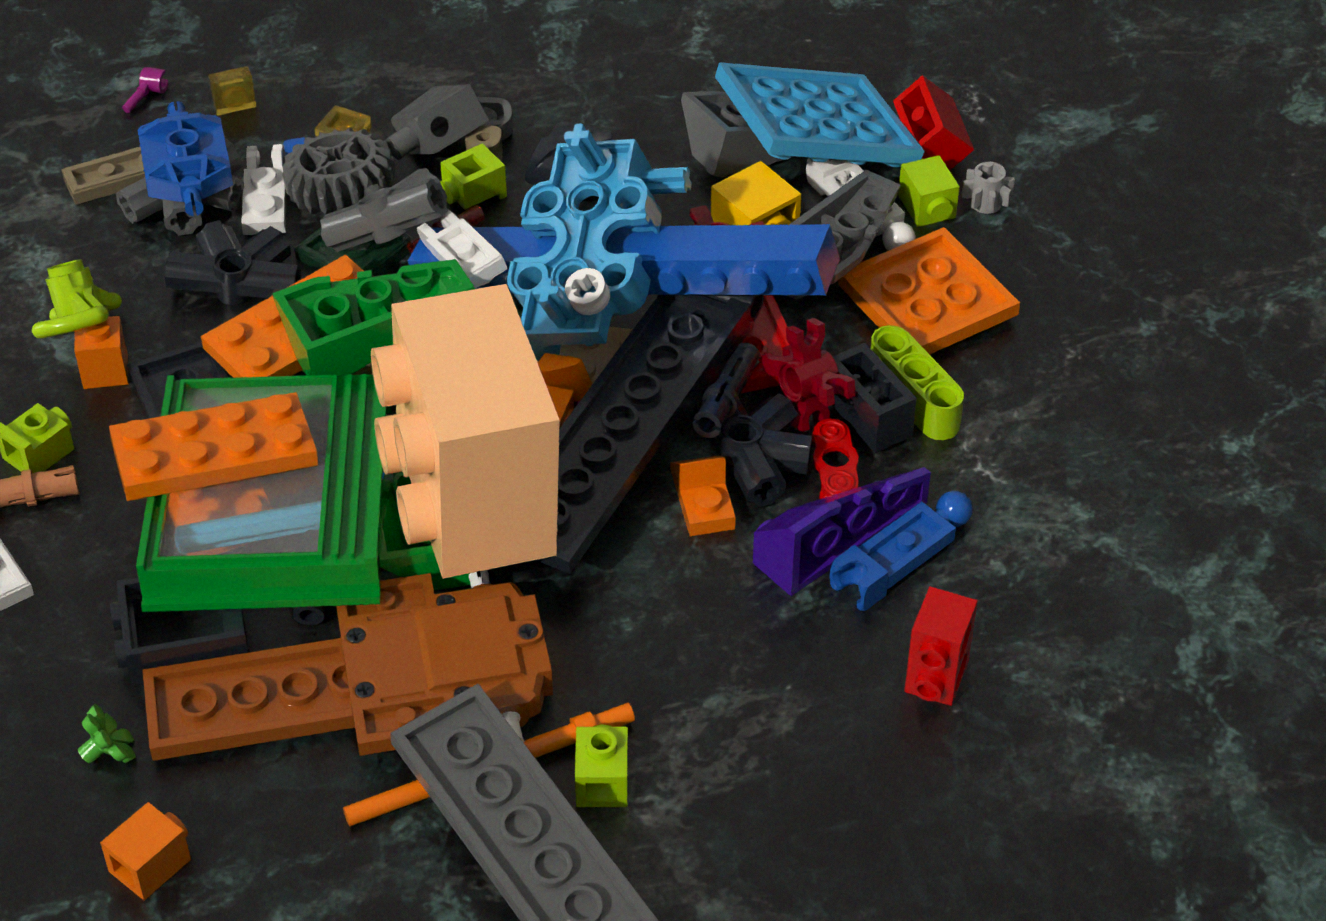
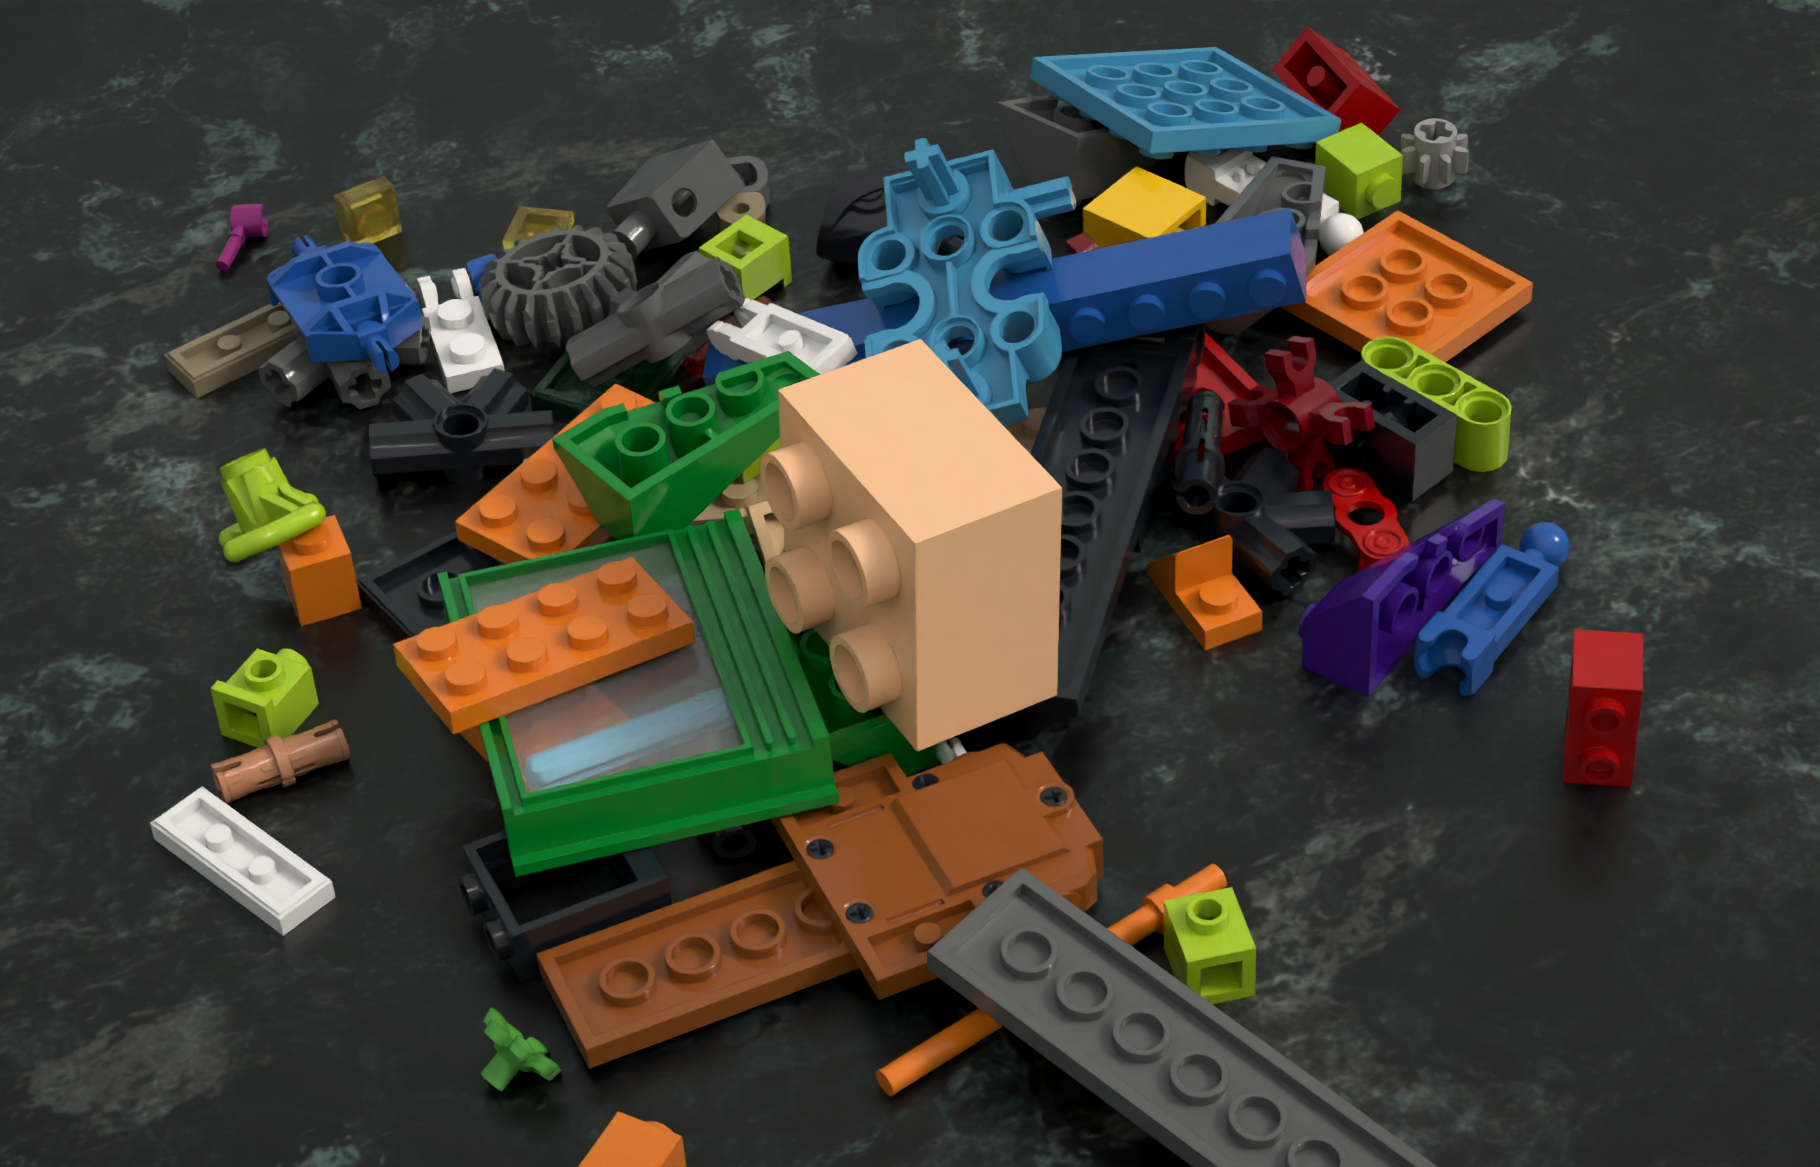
camera: 10 degrees left, 5 degrees down
(591, 302) = (1004, 363): white bush -> none

